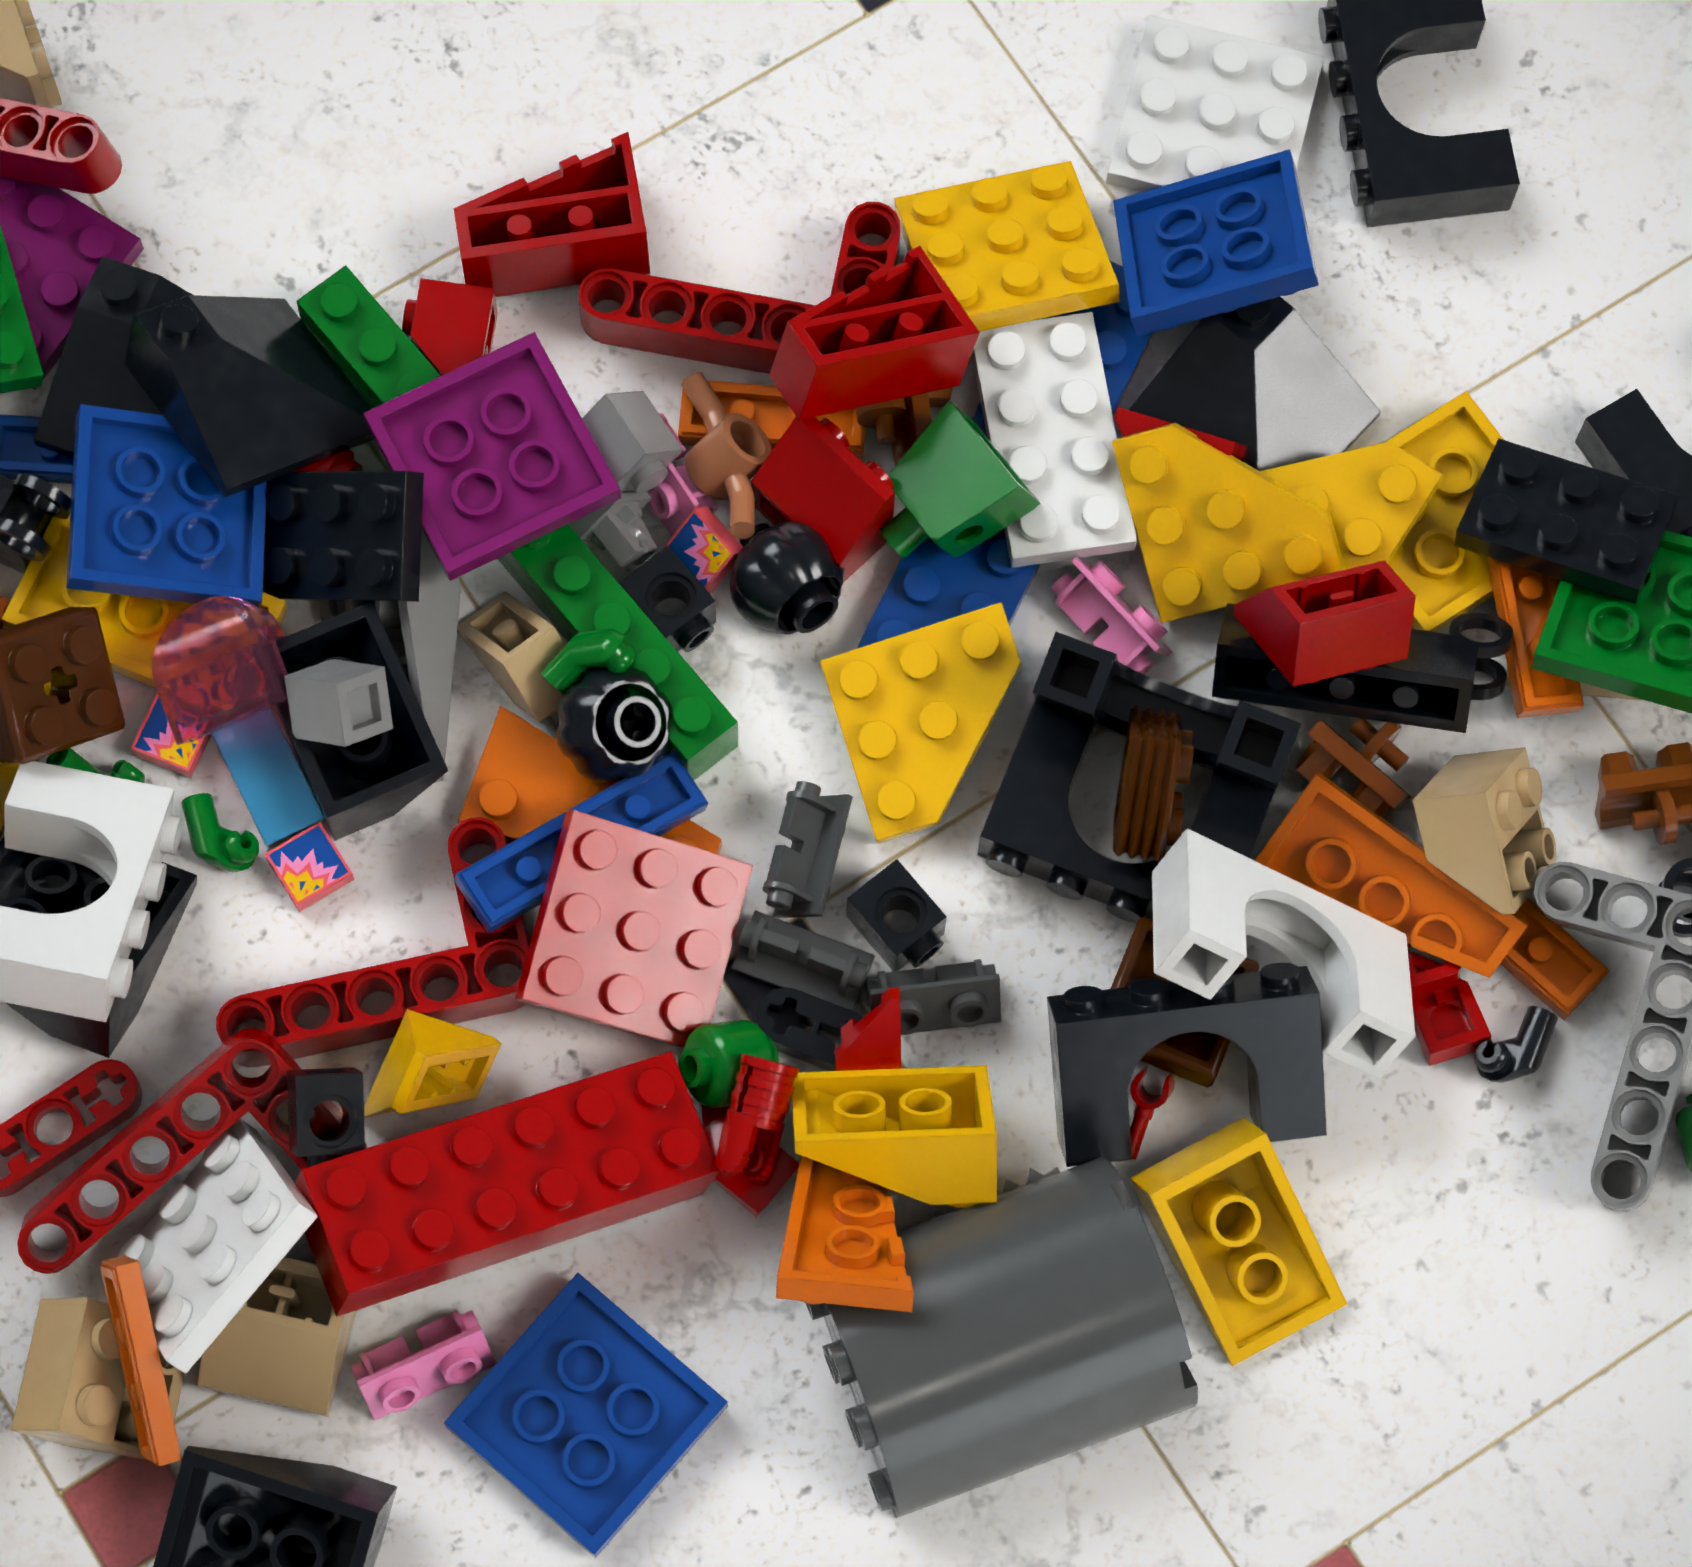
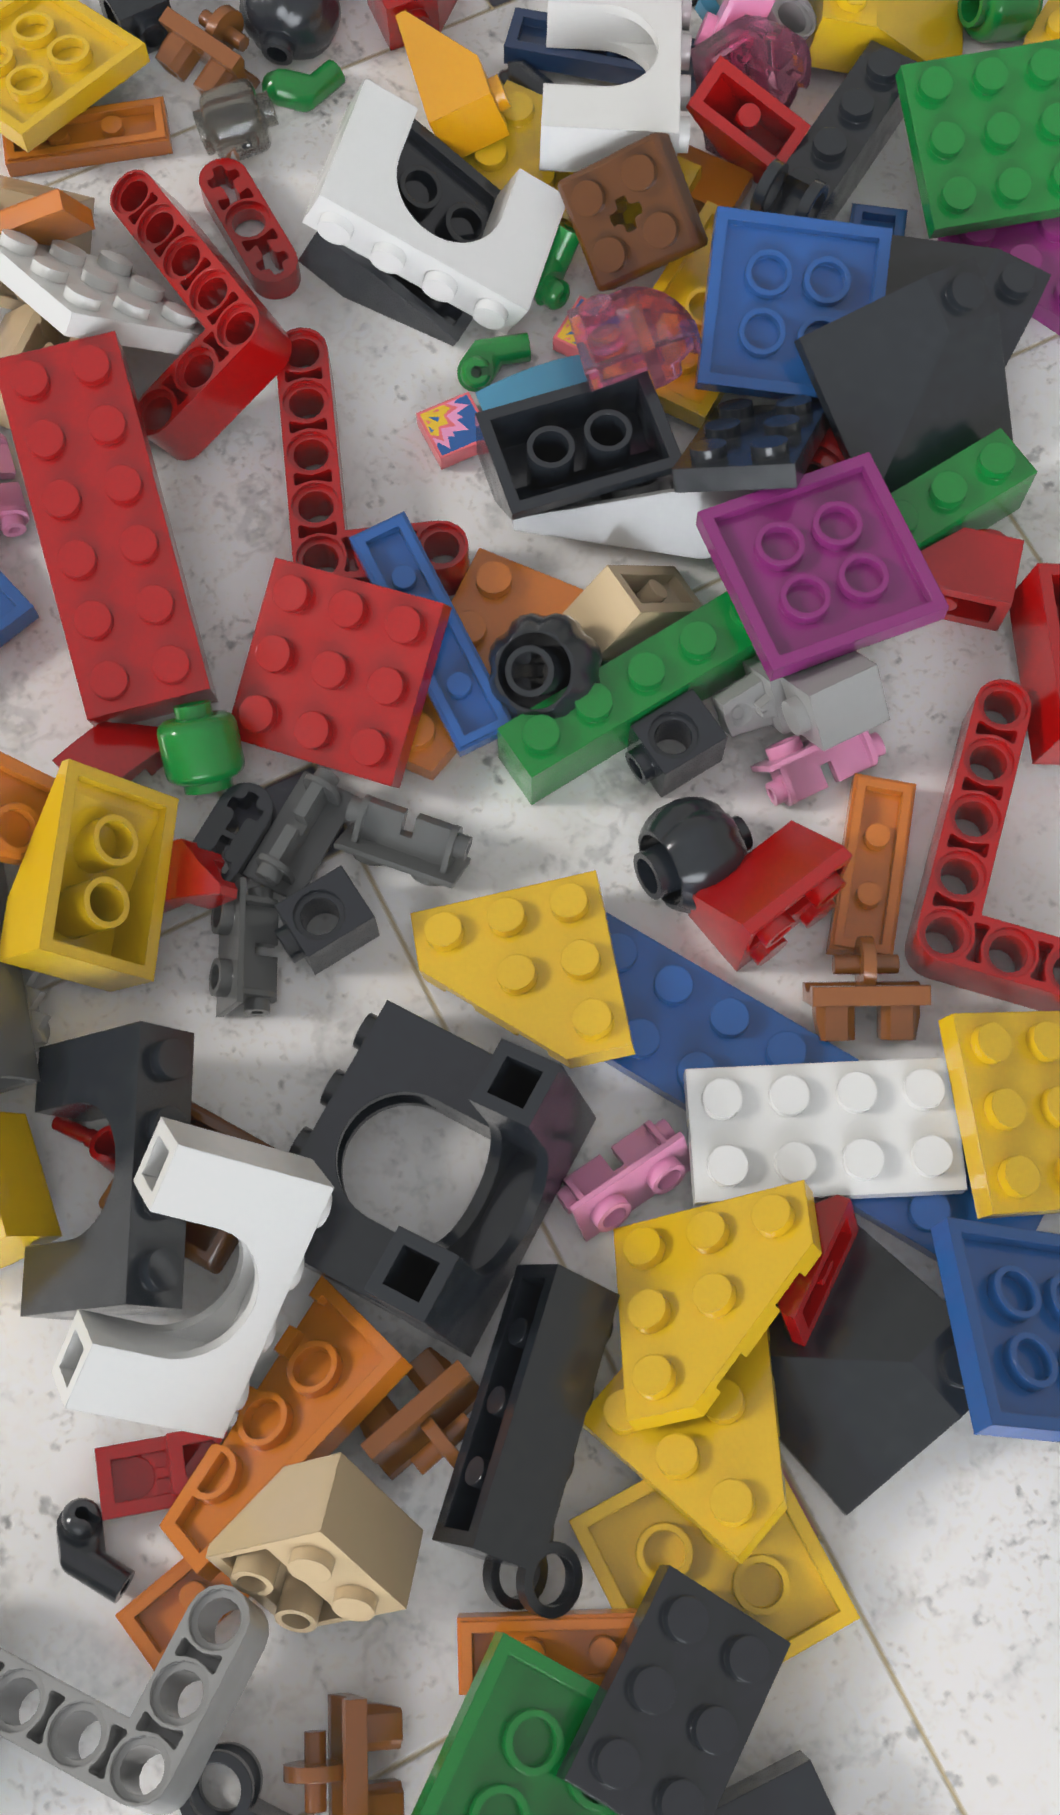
camera: 100 degrees right, 0 degrees up
(312, 1087) = (183, 375): black brick -> none
(338, 702) = (577, 416): light grey panel -> none
(431, 1066) = (238, 496): yellow slope -> none
(589, 650) = (610, 639): green arm -> none
(705, 547) = (730, 780): tile -> none
(726, 455) = (813, 788): nougat piece -> none
(755, 1117) = (133, 751): red hinge -> none
(877, 343) = (921, 930): red wedge -> none
(954, 488) = (767, 1013): green torso -> none
(1147, 805) = (412, 1172): reddish brown brick -> none
(1332, 622) = (555, 1386): red slope -> none

